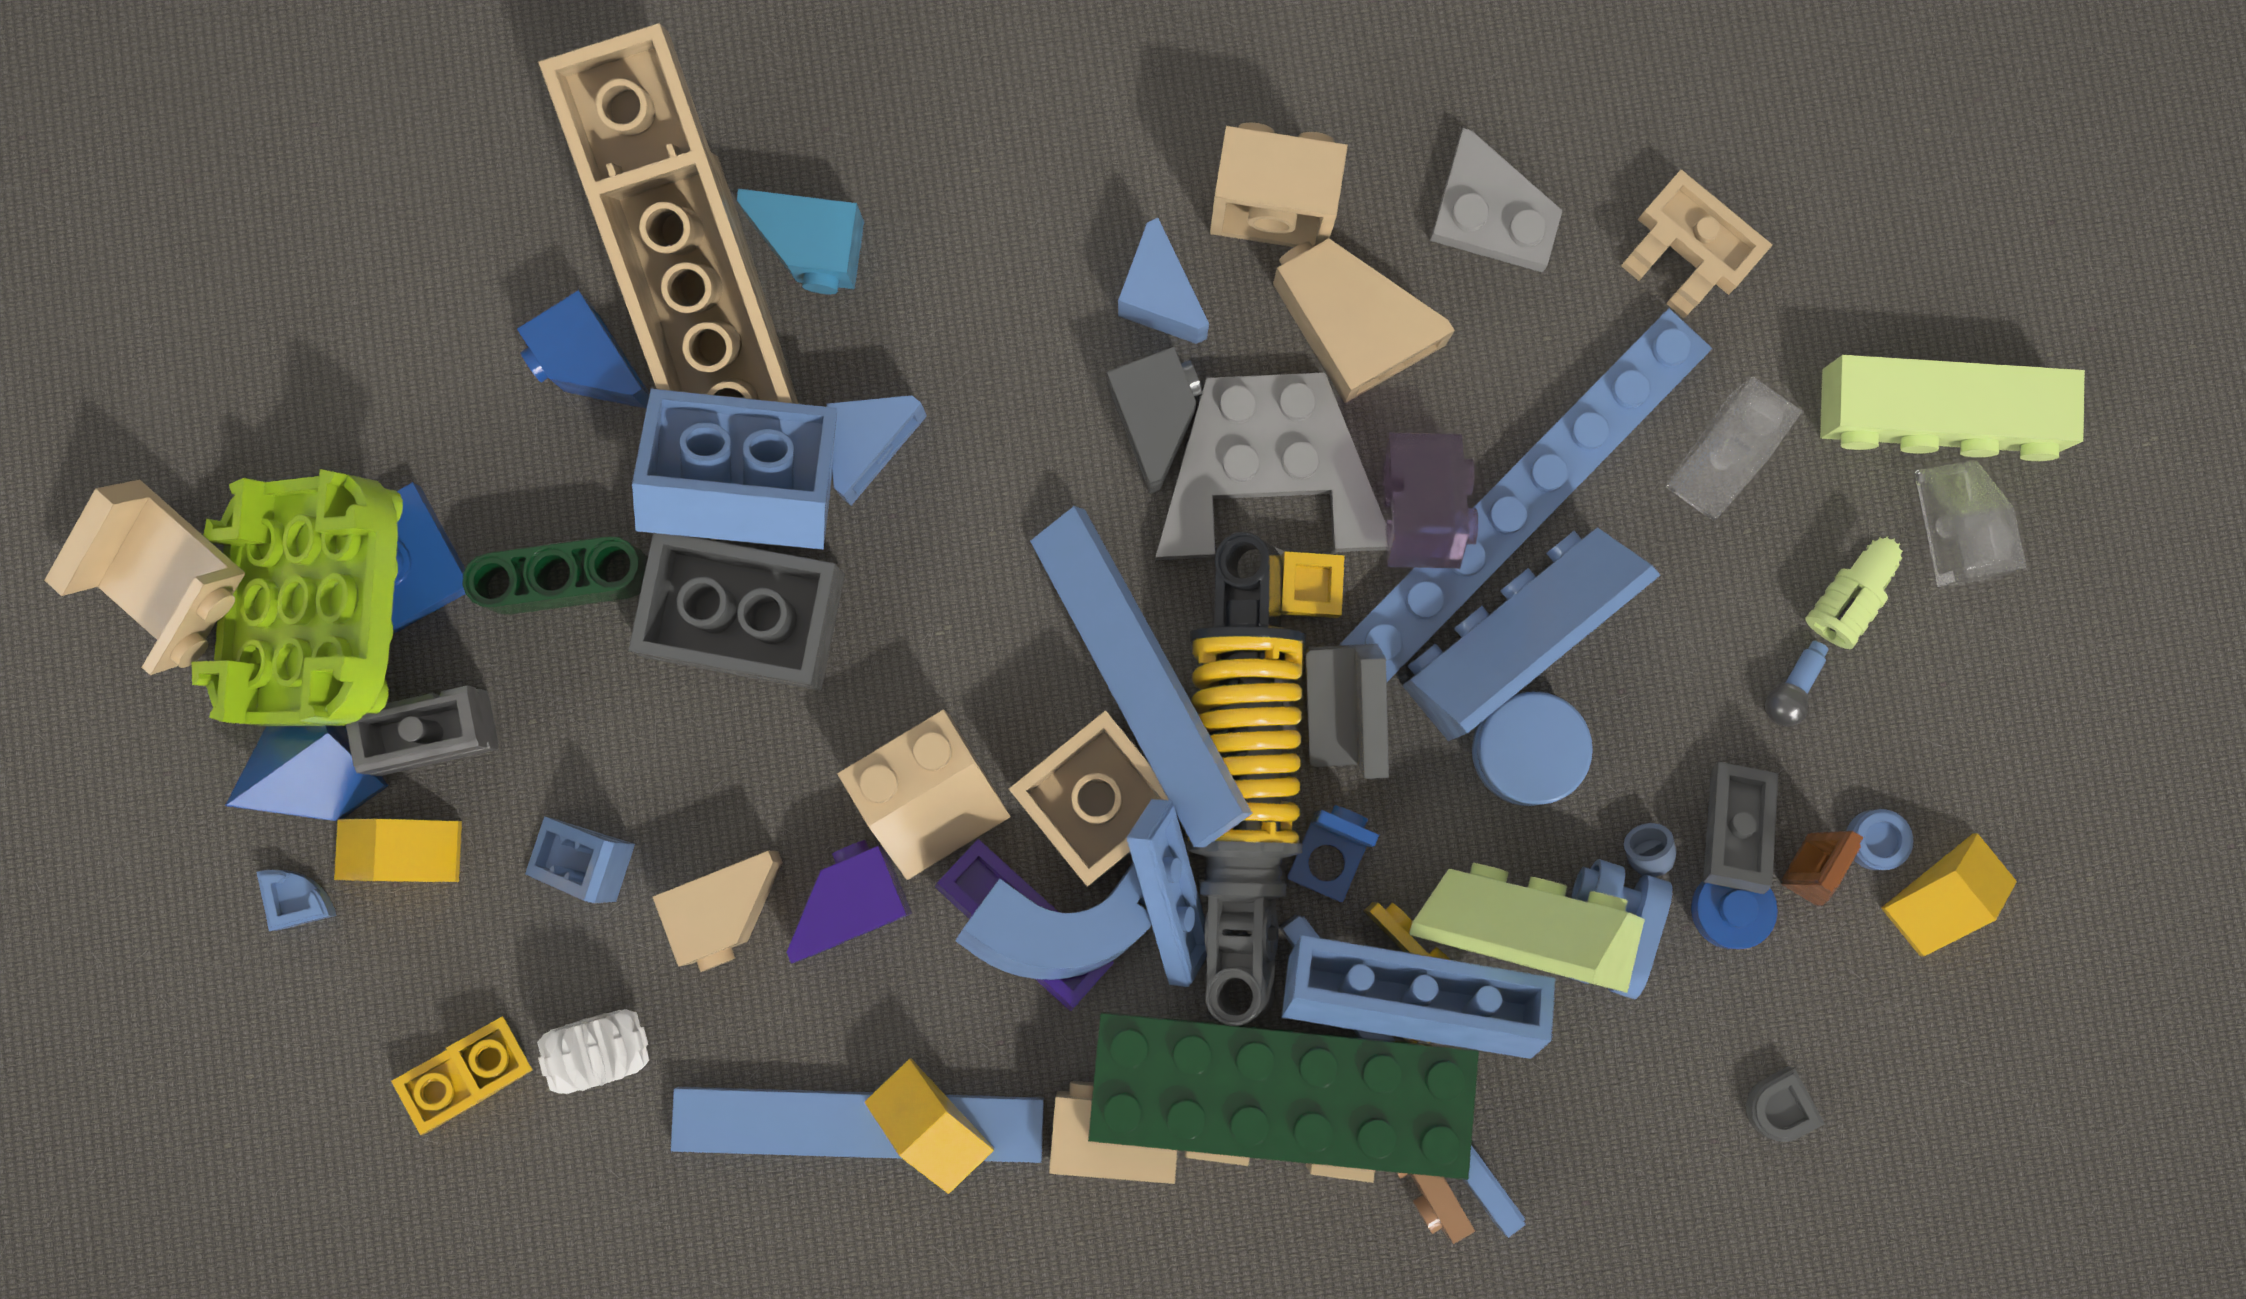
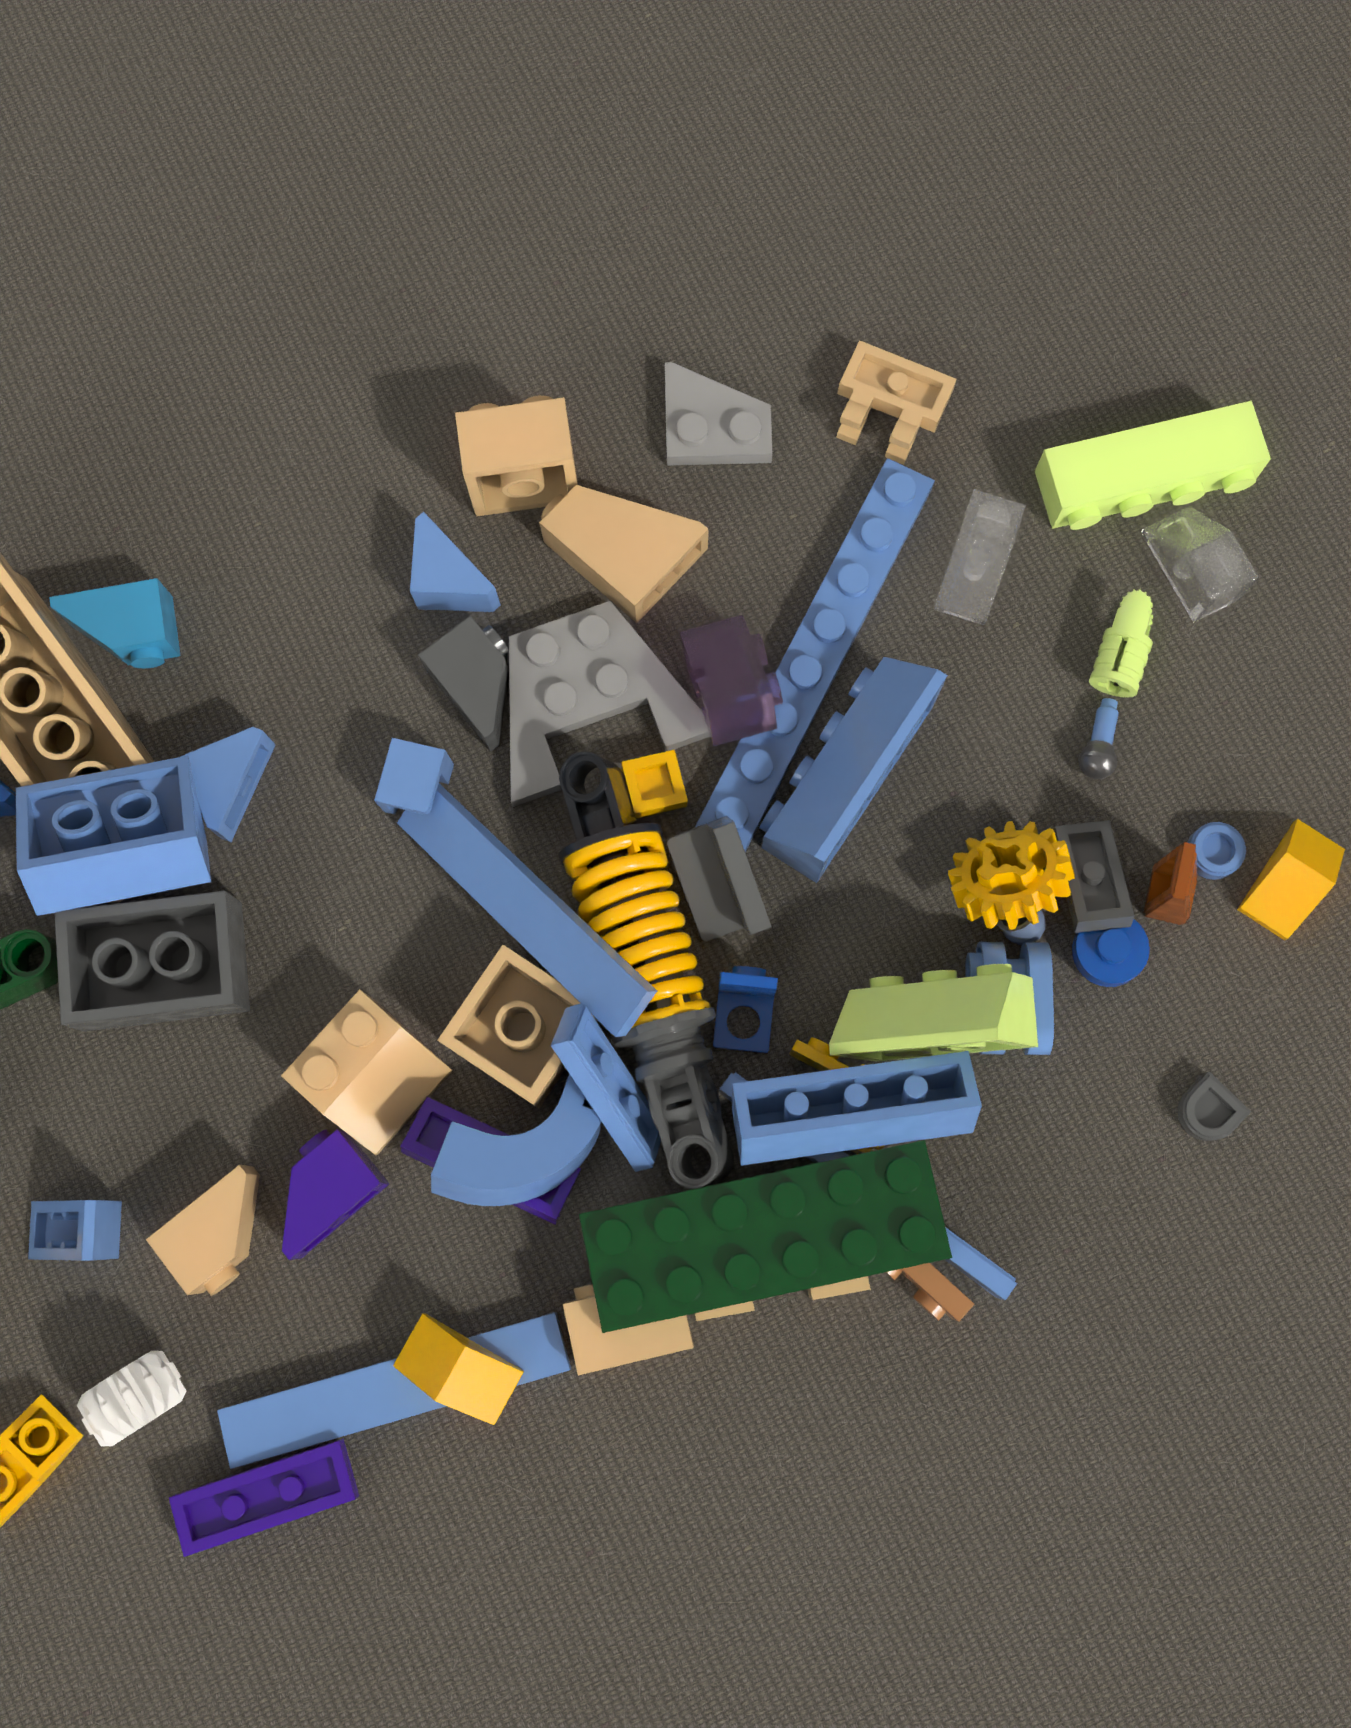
camera: 15 degrees left, 5 degrees down
(696, 1190) = (263, 1497): none -> dark purple plate
(1061, 500) = (412, 777): none -> medium blue panel
(1532, 749) = (890, 865): medium blue head -> none
(1656, 801) = (1011, 875): none -> yellow gear

